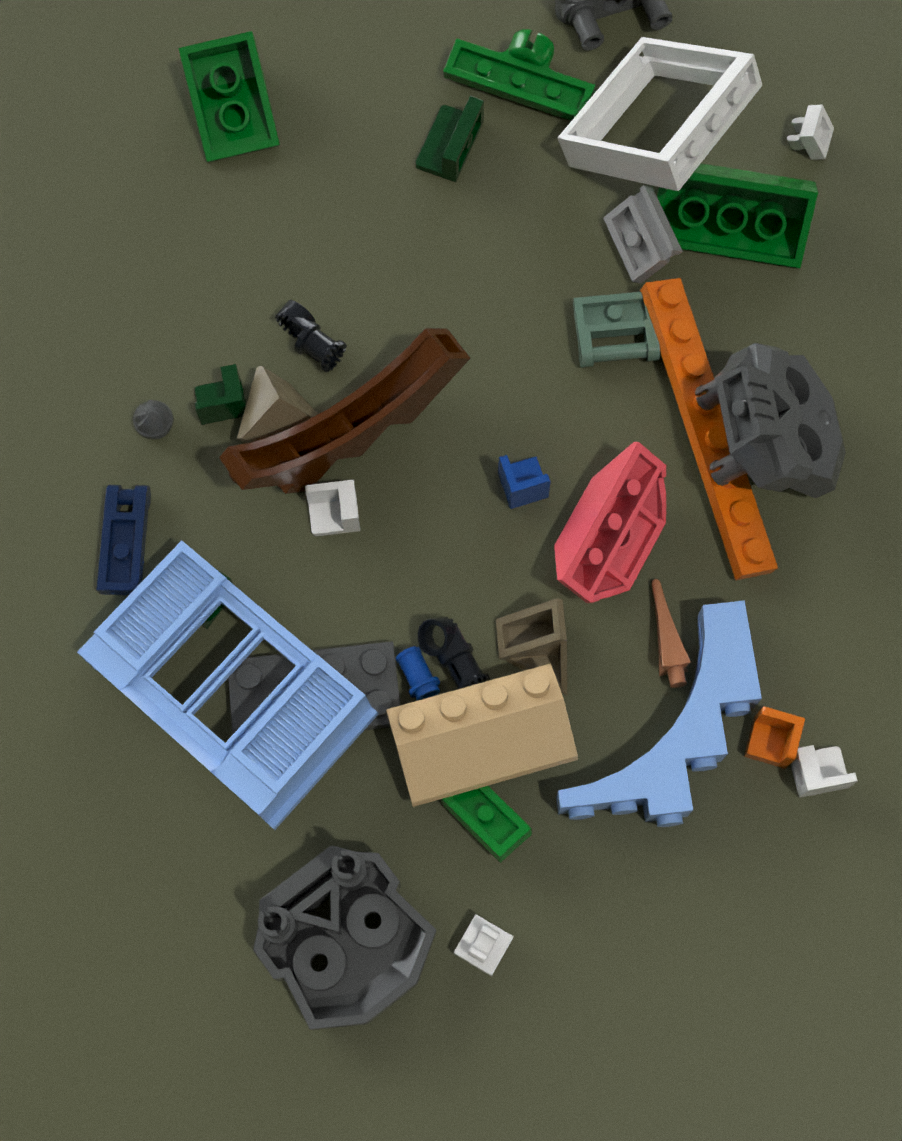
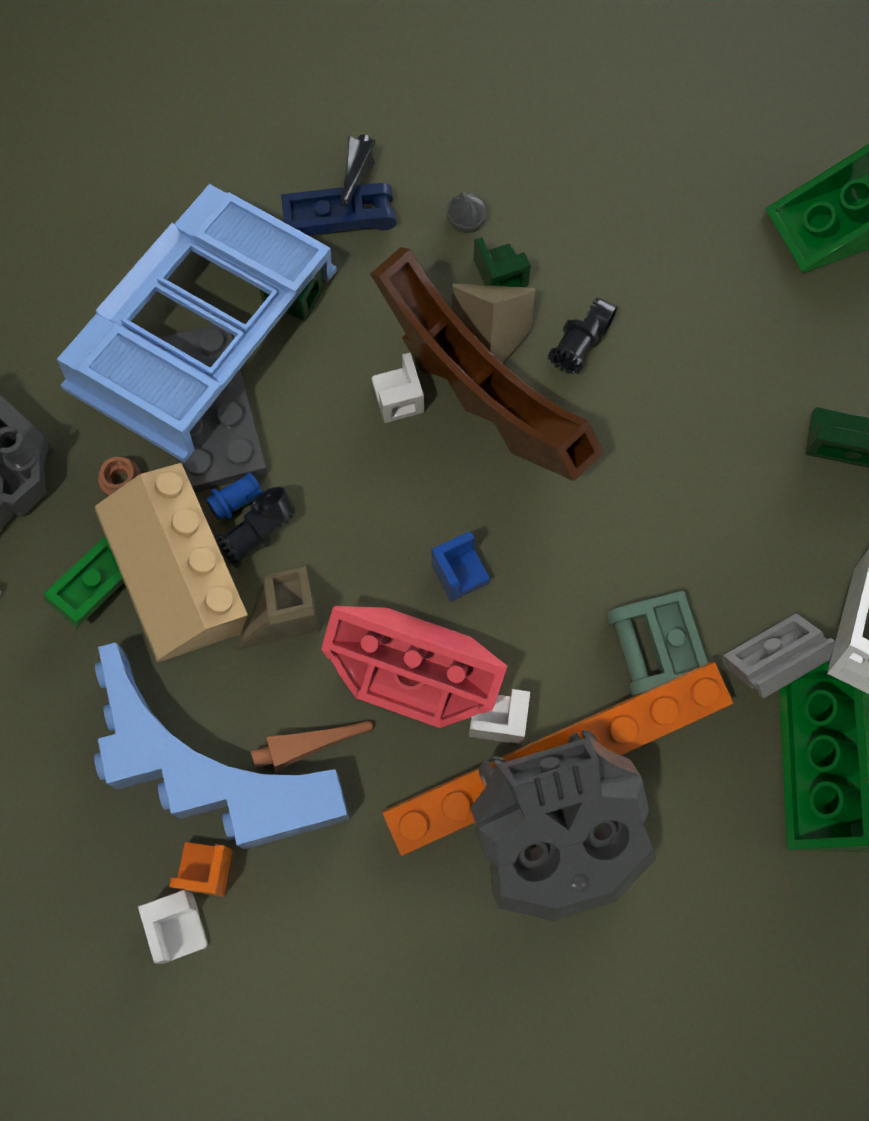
camera: 80 degrees right, 0 degrees up
(73, 511) = (358, 164): none -> black piece
(374, 771) = (112, 468): none -> nougat plate
(673, 454) = (505, 721): none -> white panel

